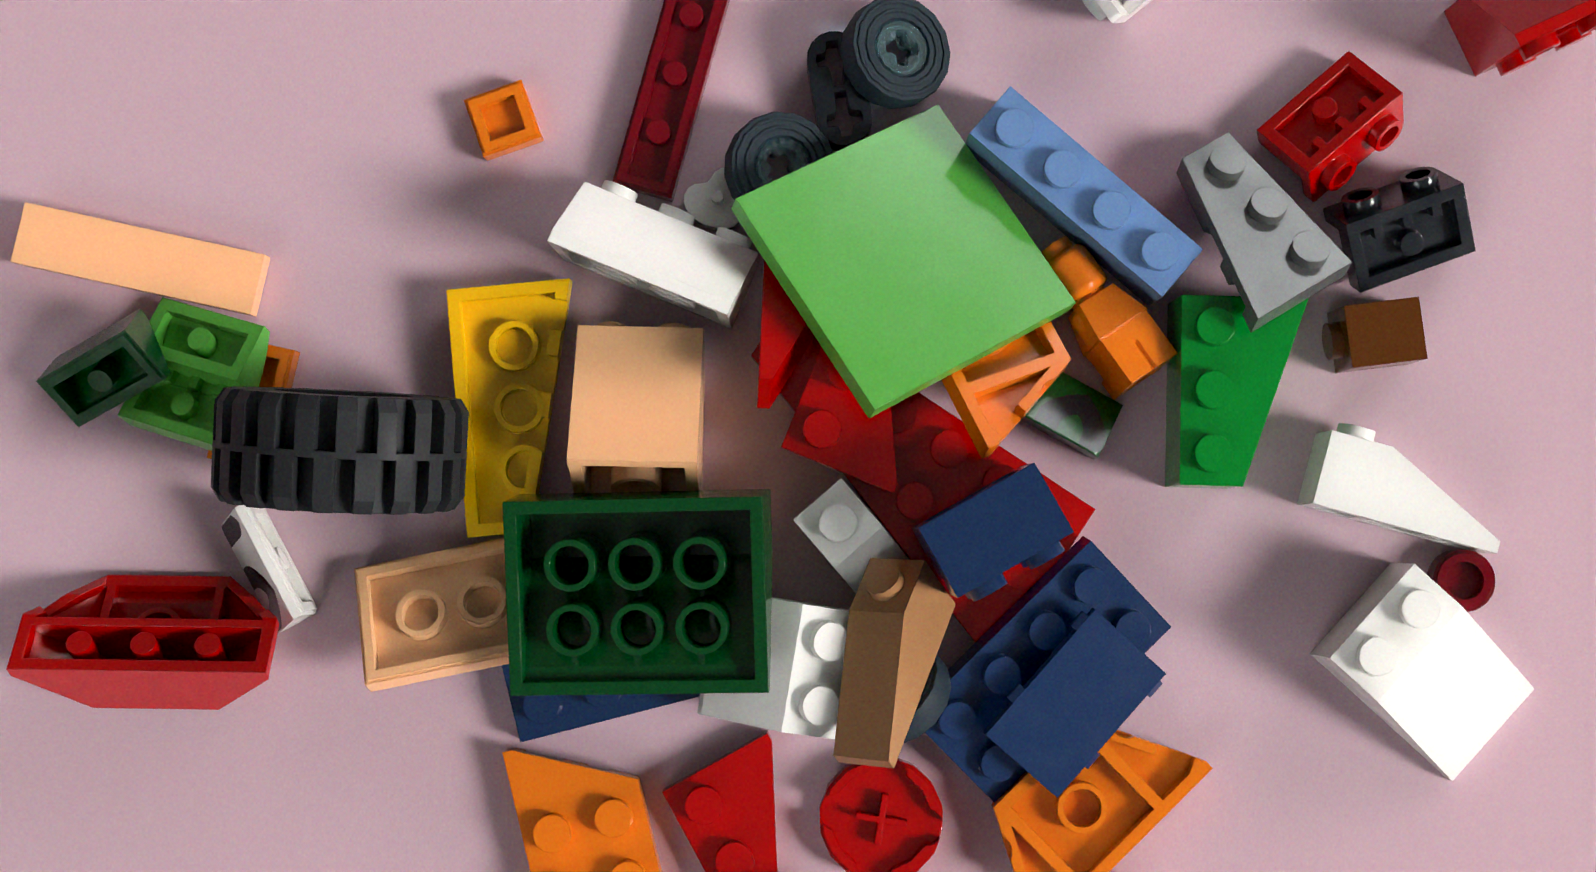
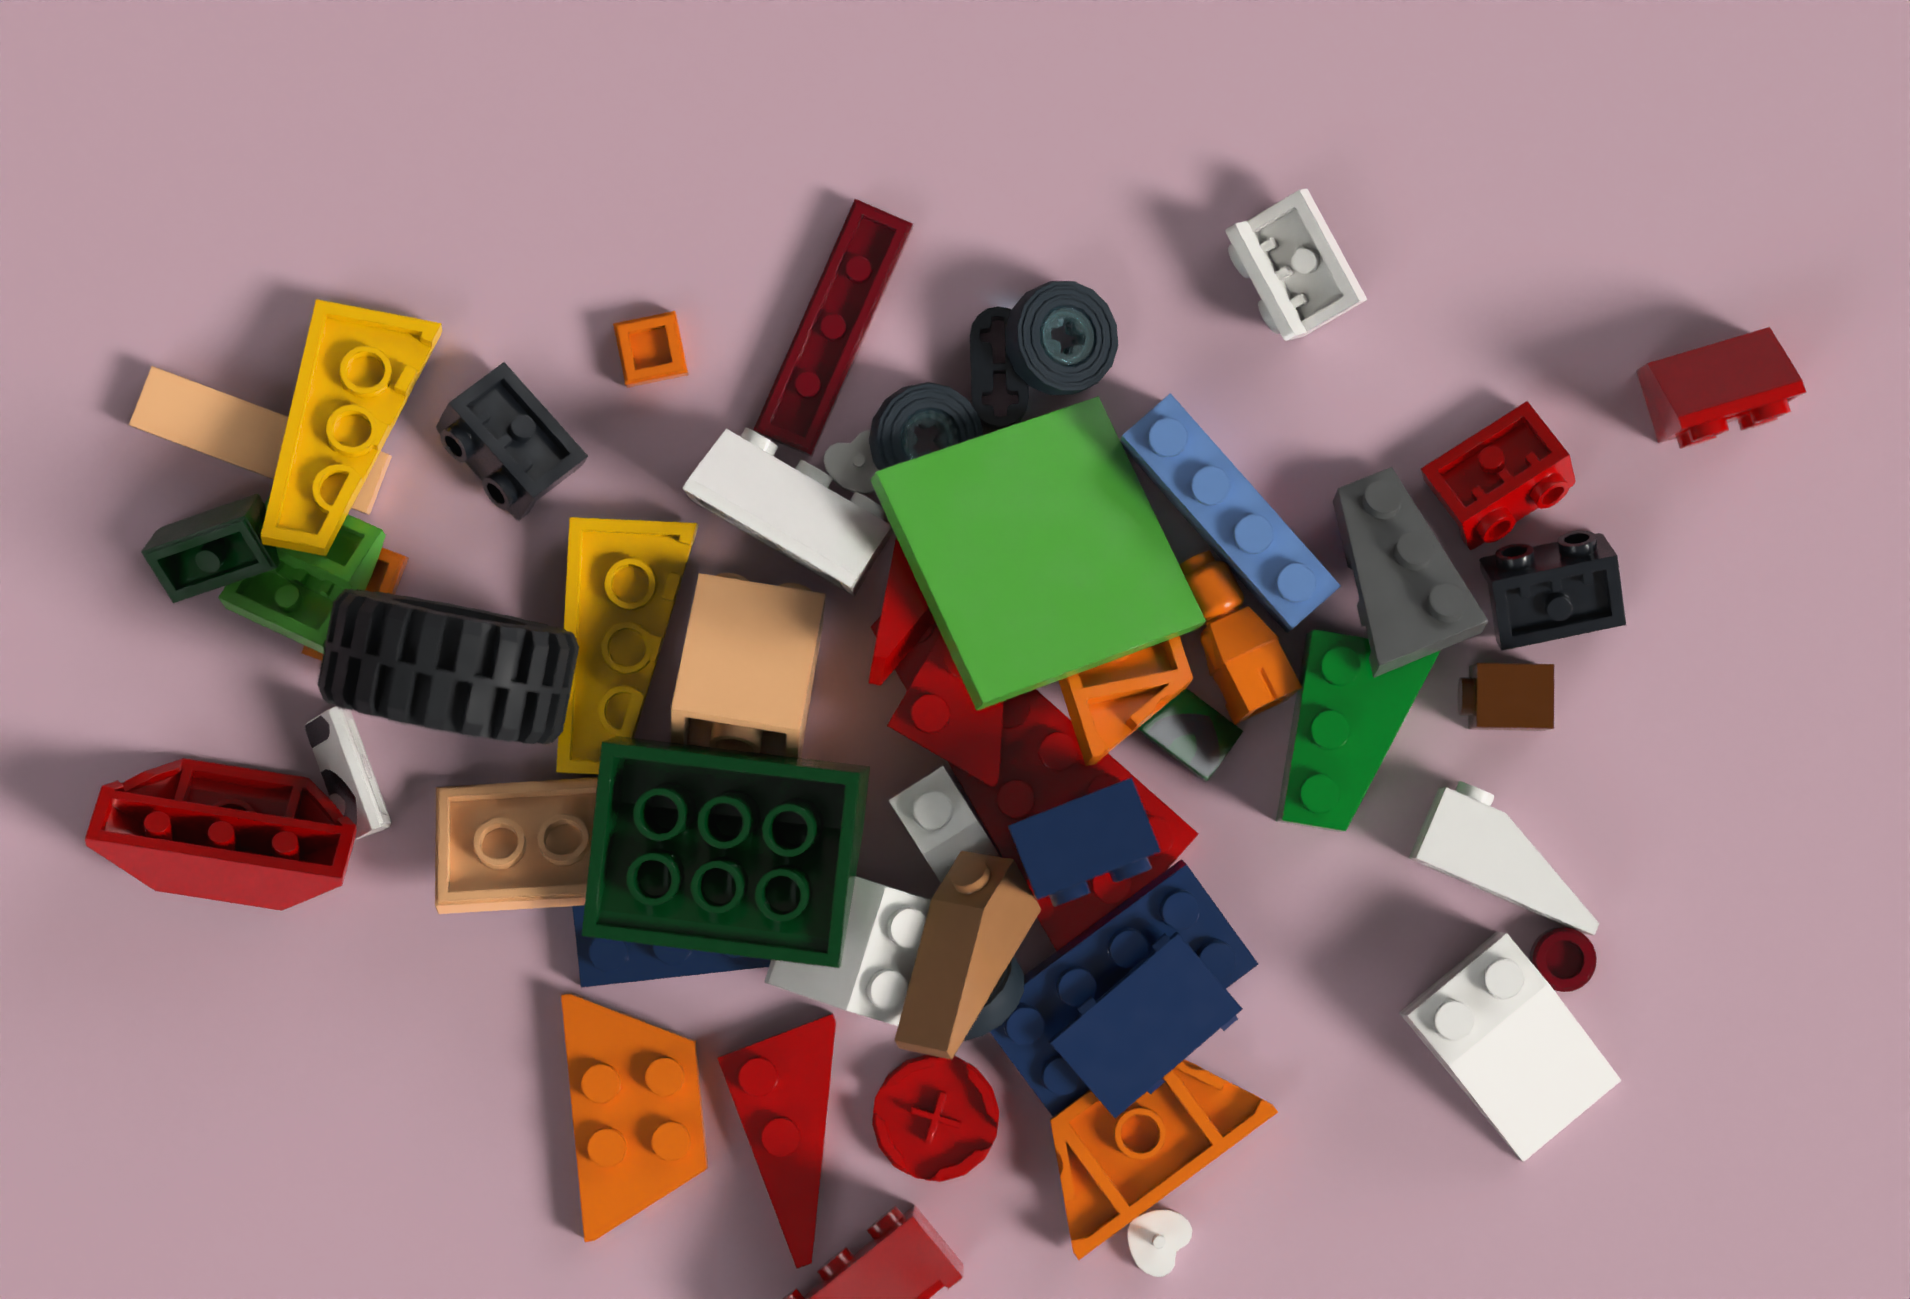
camera: 10 degrees right, 0 degrees up
(211, 218) = (342, 410): none -> yellow wing
(378, 225) = (509, 441): none -> black bracket

